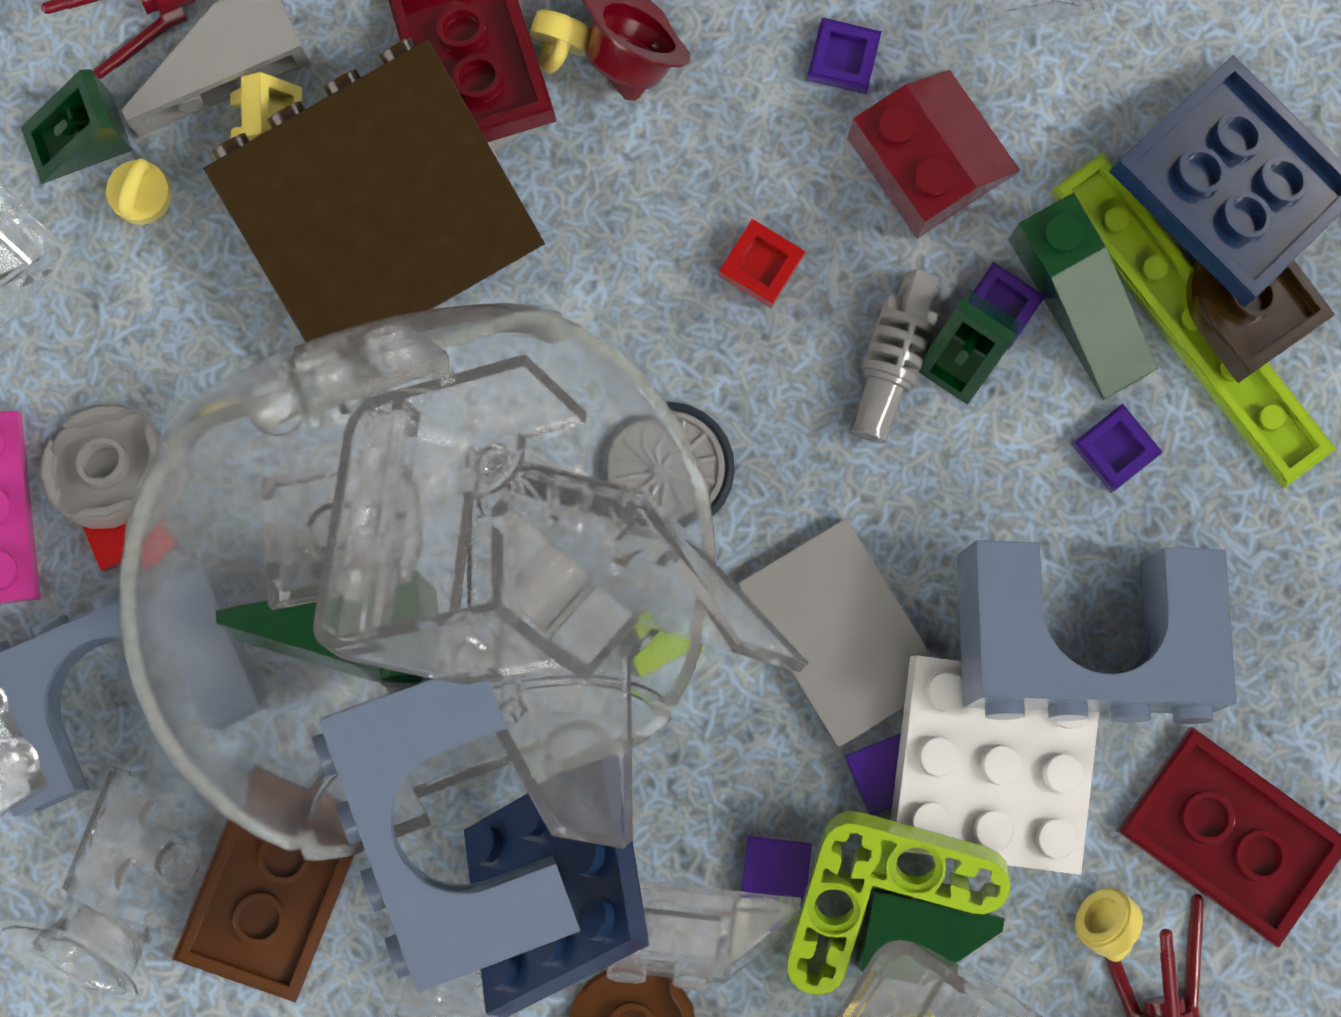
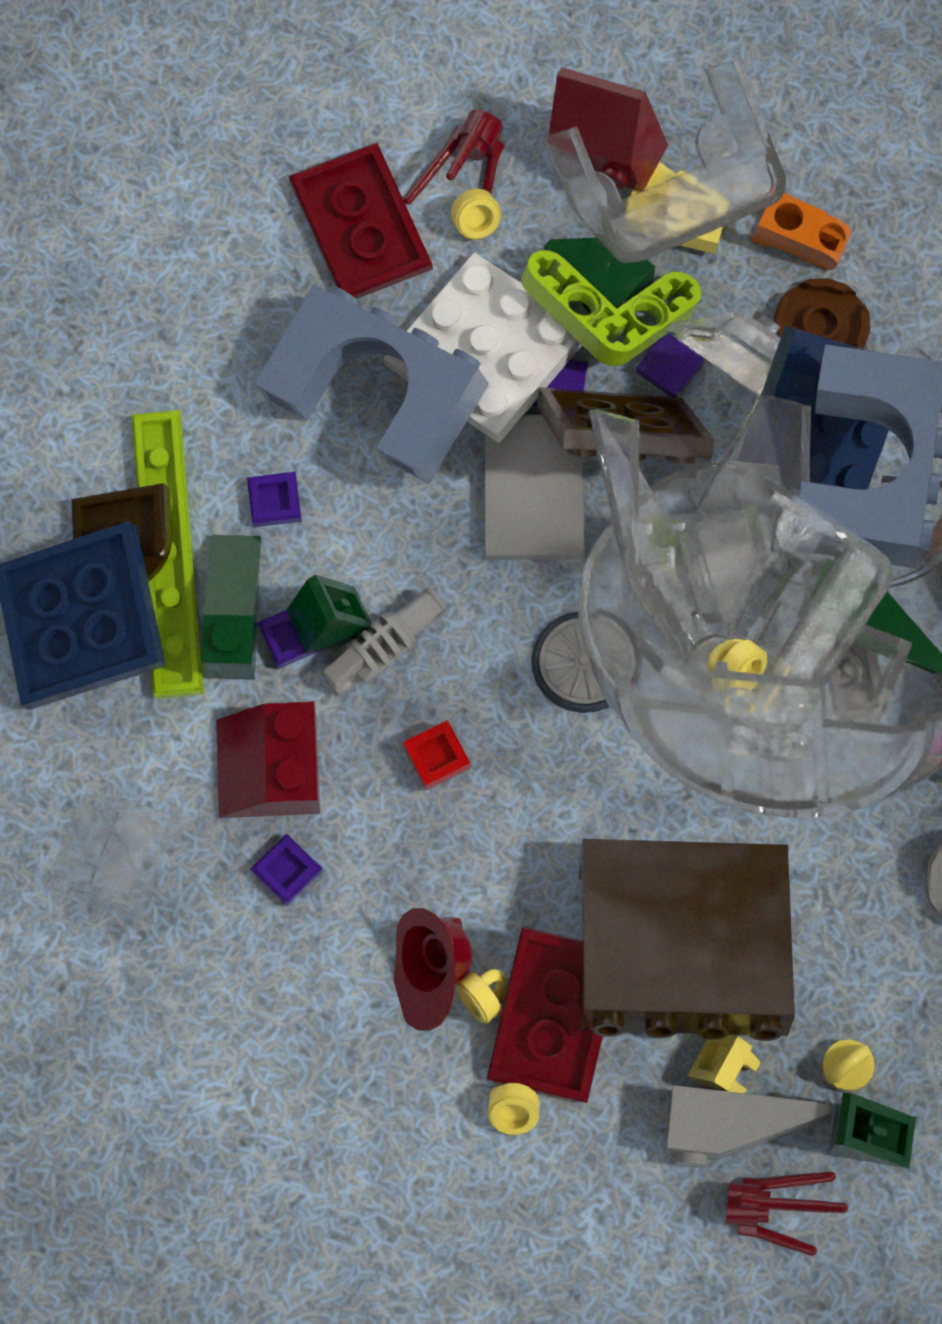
camera: 150 degrees left, 10 degrees down
(449, 454) = (740, 656): none -> light yellow tile
(775, 738) = (665, 423): none -> dark brown plate

